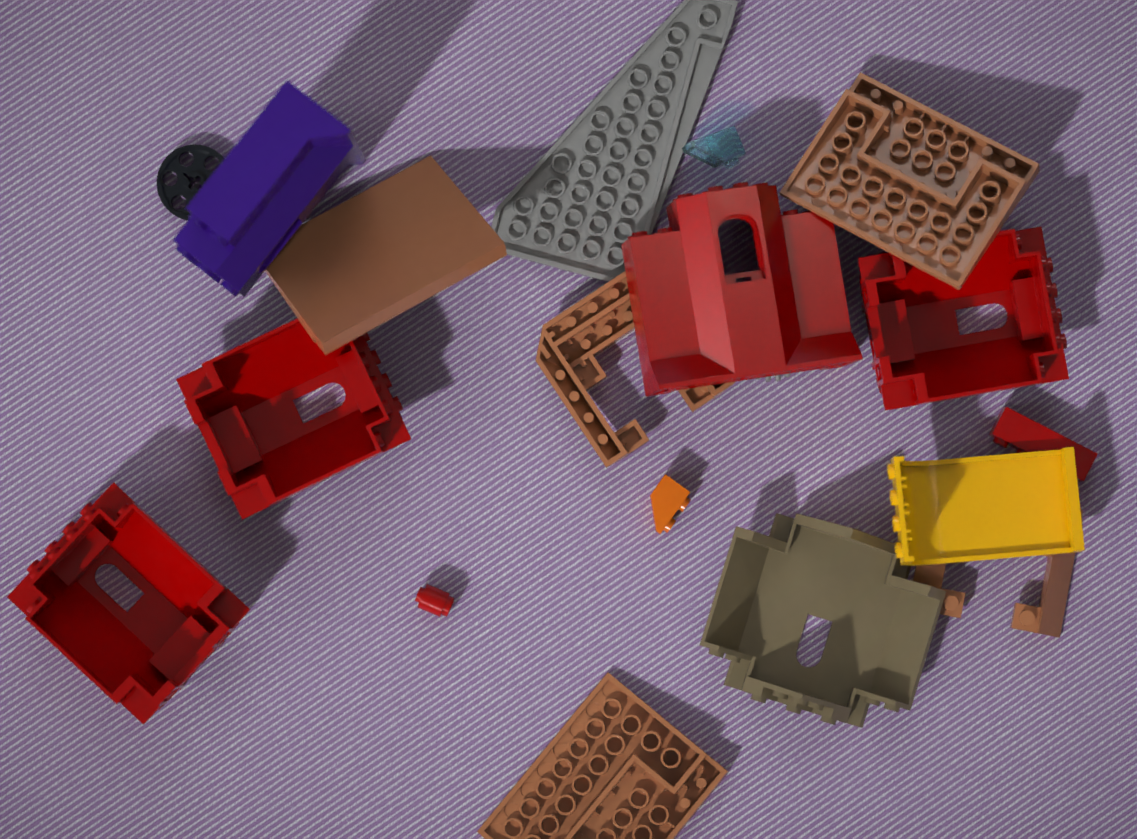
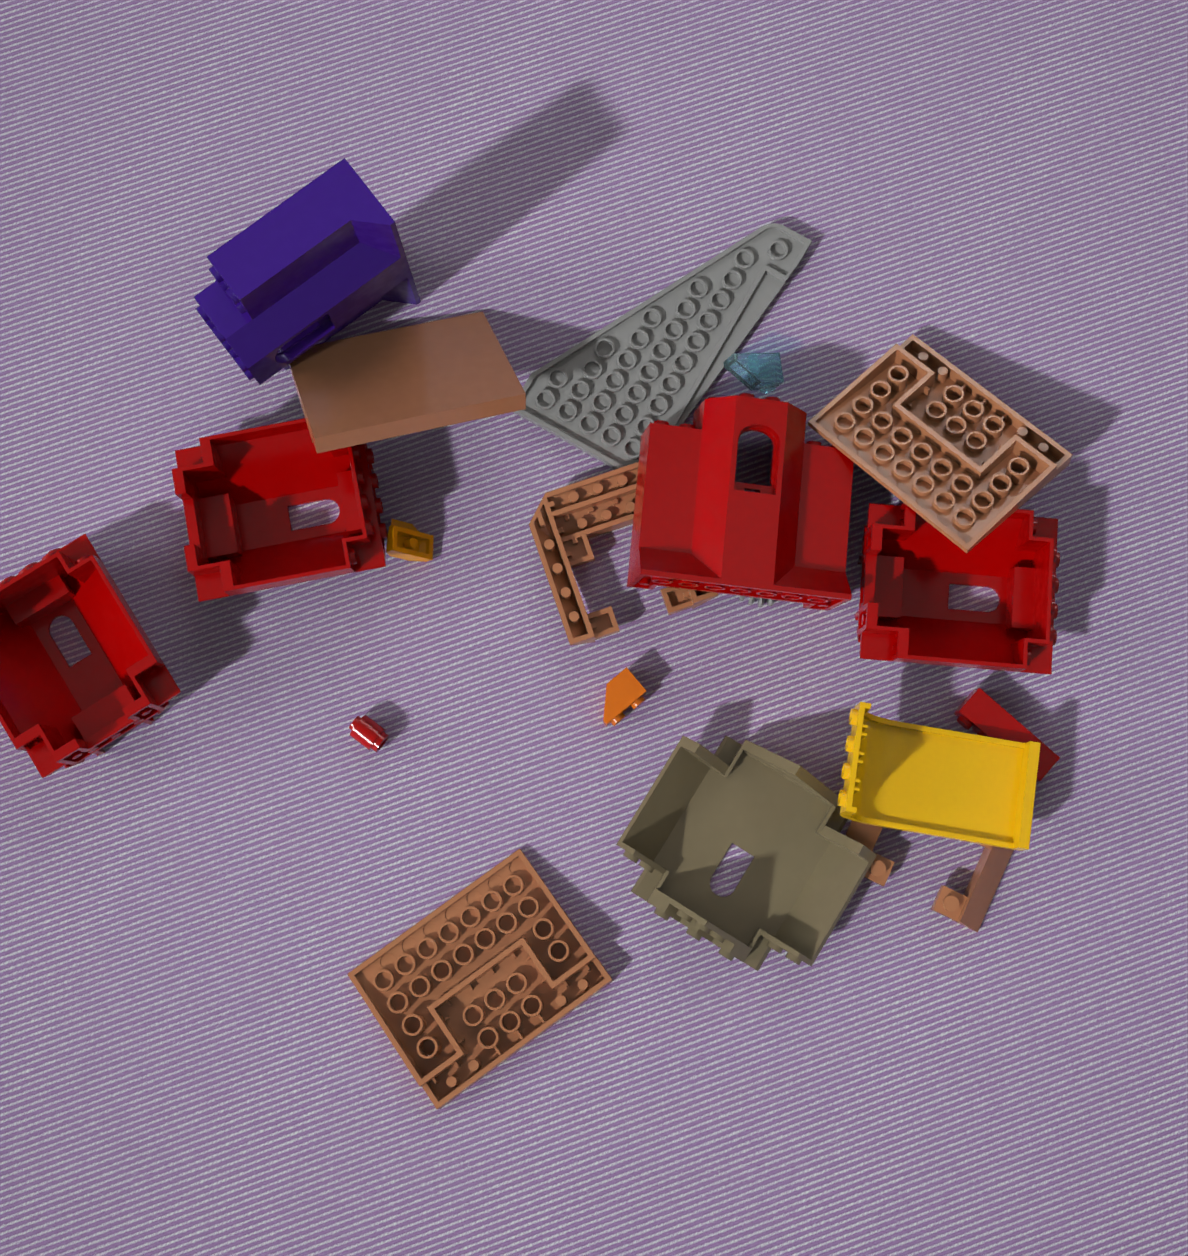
camera: 15 degrees right, 5 degrees down
(423, 406) = (408, 543): none -> light orange slope

